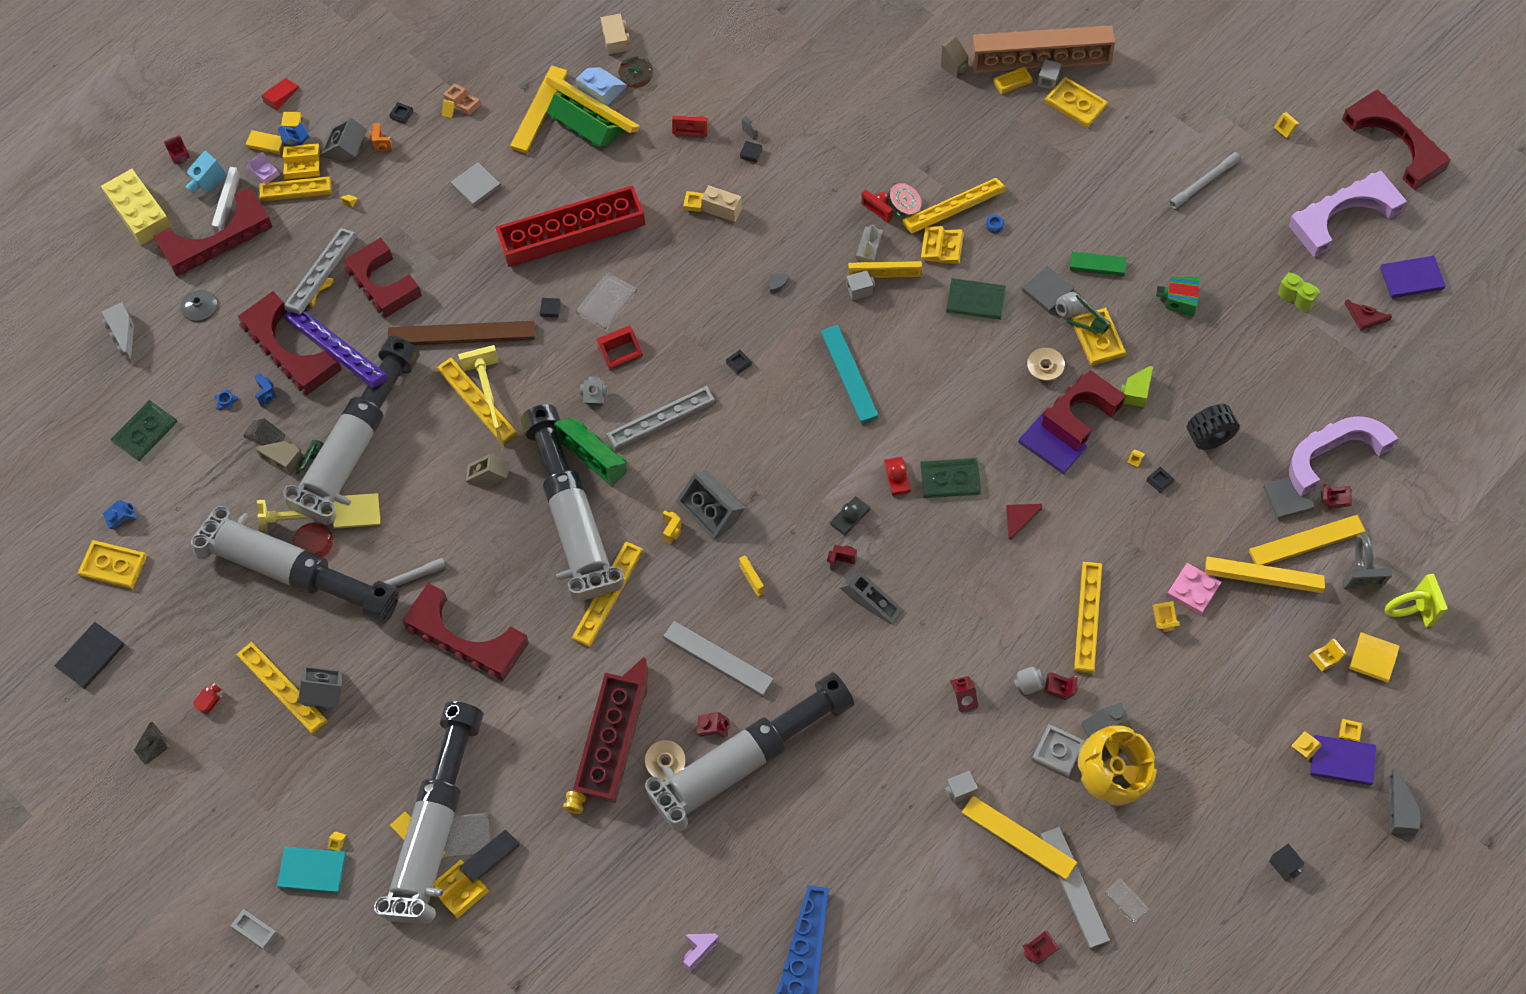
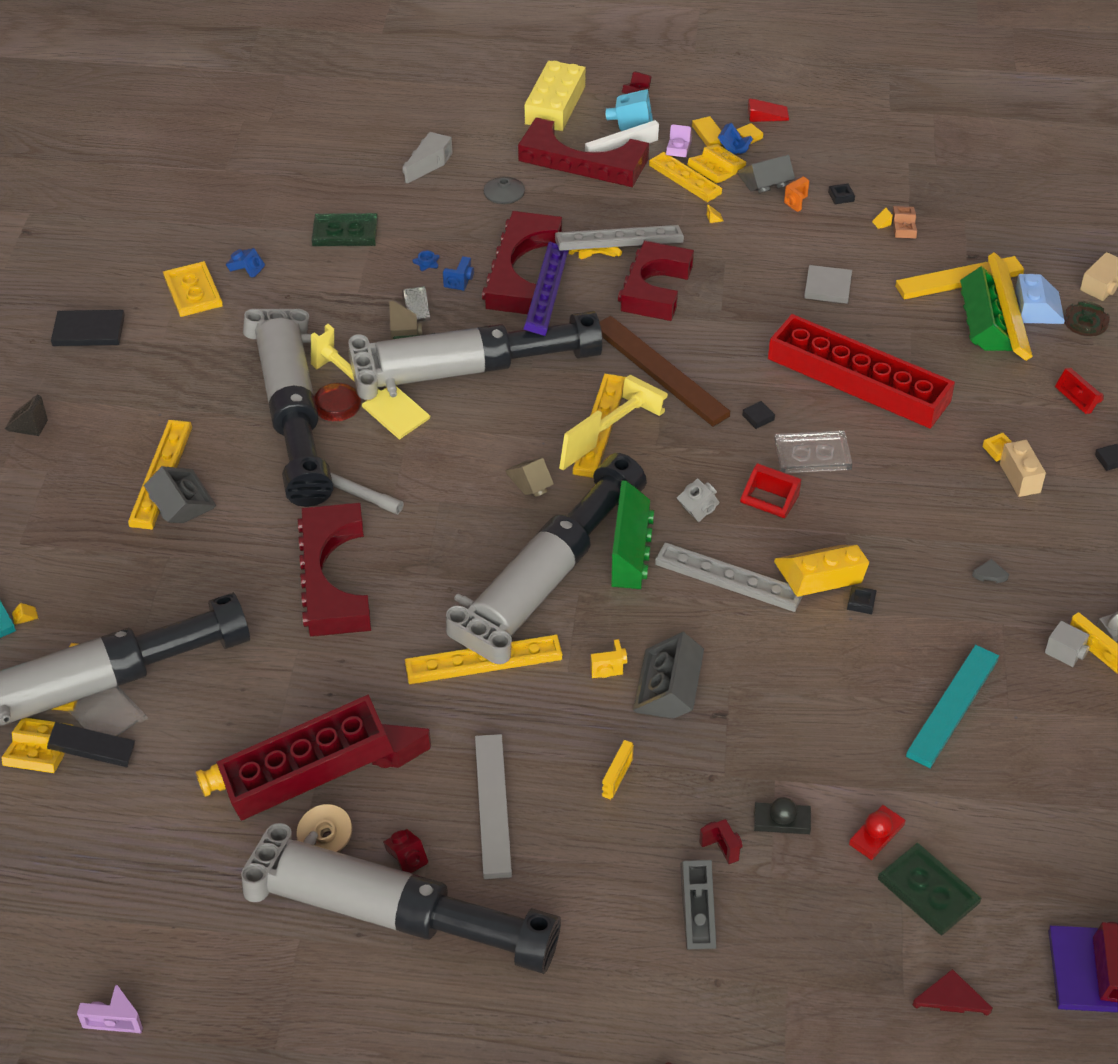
camera: 50 degrees right, 15 degrees down
(207, 699) = (105, 427): red arm -> none
(701, 364) = (823, 569): none -> yellow slope

